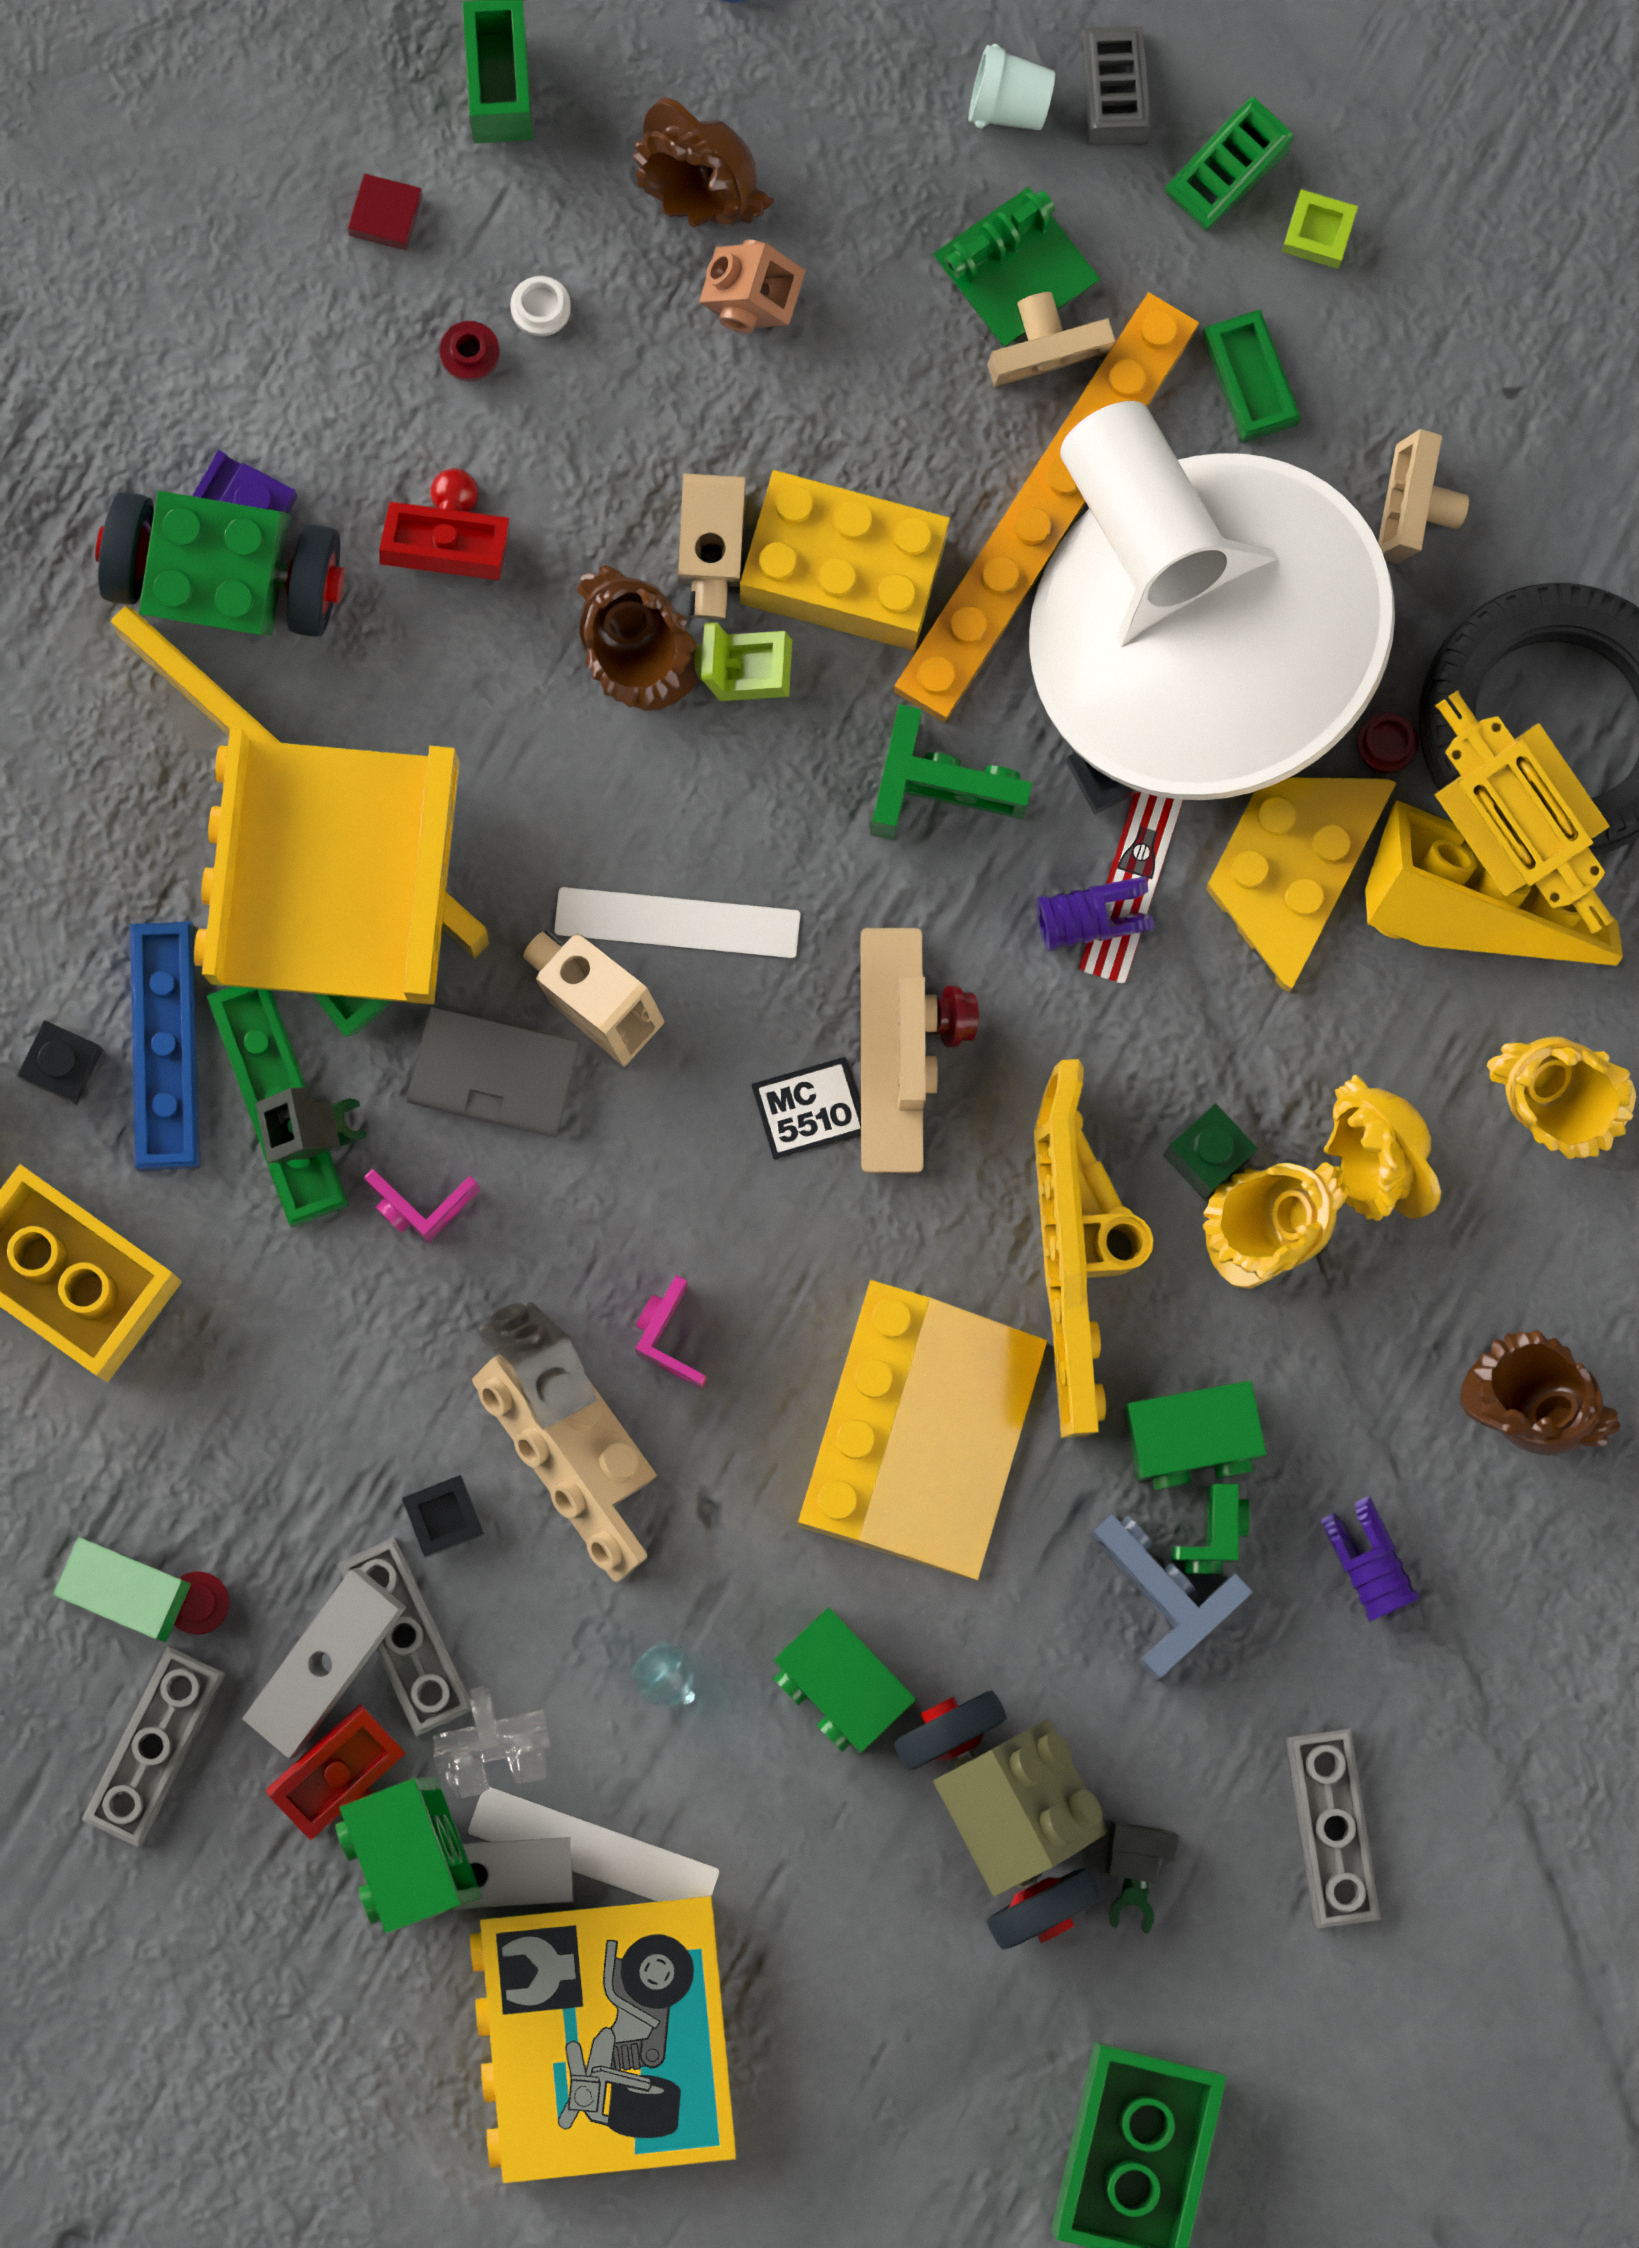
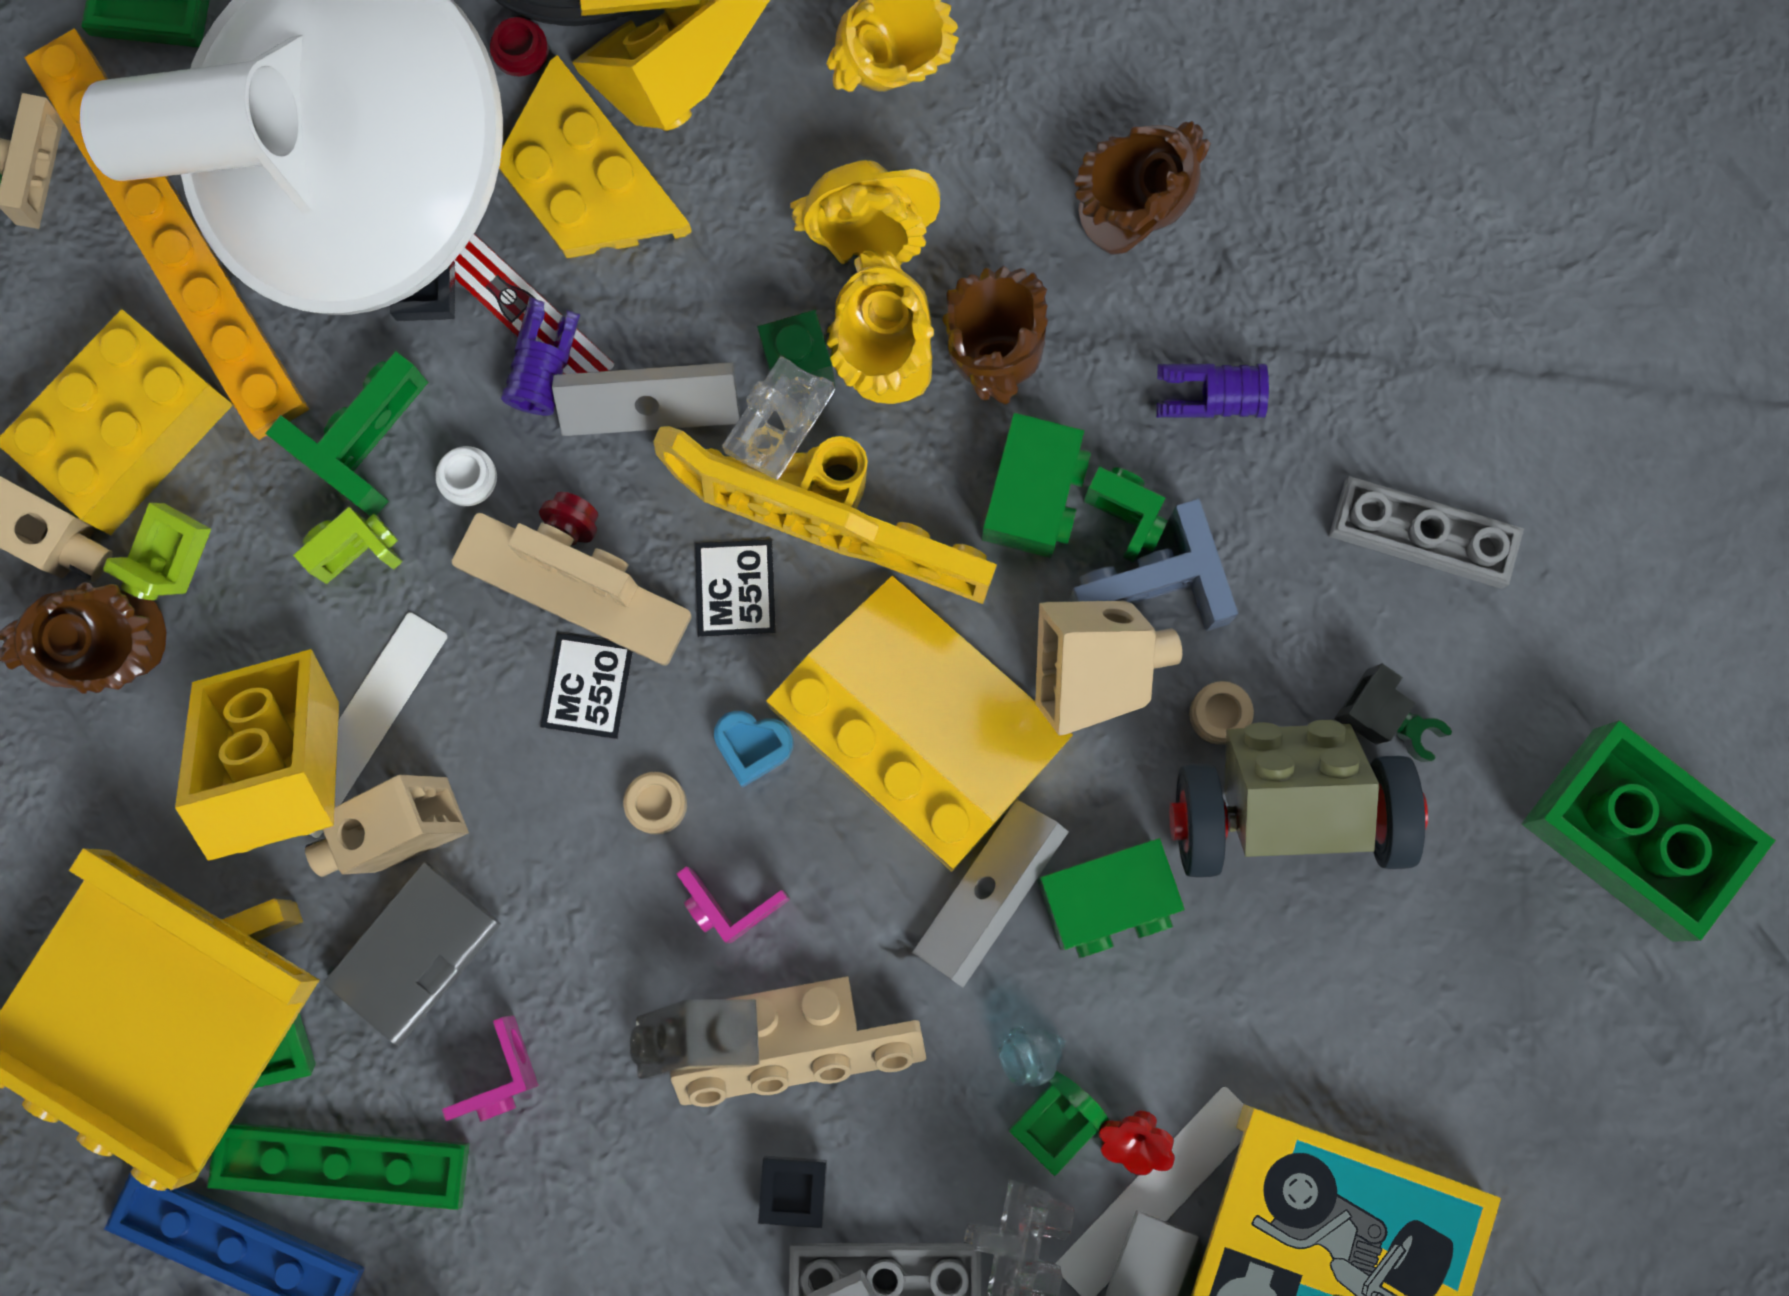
camera: 55 degrees left, 0 degrees up
(302, 1128) = (373, 1155): pearl dark grey piece -> none
(607, 853) = (259, 756): none -> yellow brick
(615, 1731) = (1058, 1123): none -> green tile
(630, 1809) = (1137, 1144): none -> red plant
(731, 1223) = (655, 803): none -> tan tile
(794, 1569) = (990, 892): none -> light grey tile
(825, 1286) = (752, 745): none -> dark azure tile
(829, 816) = (339, 542): none -> lime bracket
(950, 900) = (466, 476): none -> white plate
(966, 1199) = (735, 588): none -> sticker
(1053, 1568) = (1097, 661): none -> tan torso
(1068, 1706) = (1220, 708): none -> tan tile
(1102, 1032) = (646, 399): none -> light grey tile
(1157, 1175) = (797, 400): none -> clear hips
(1324, 1327) = (996, 330): none -> reddish brown hair

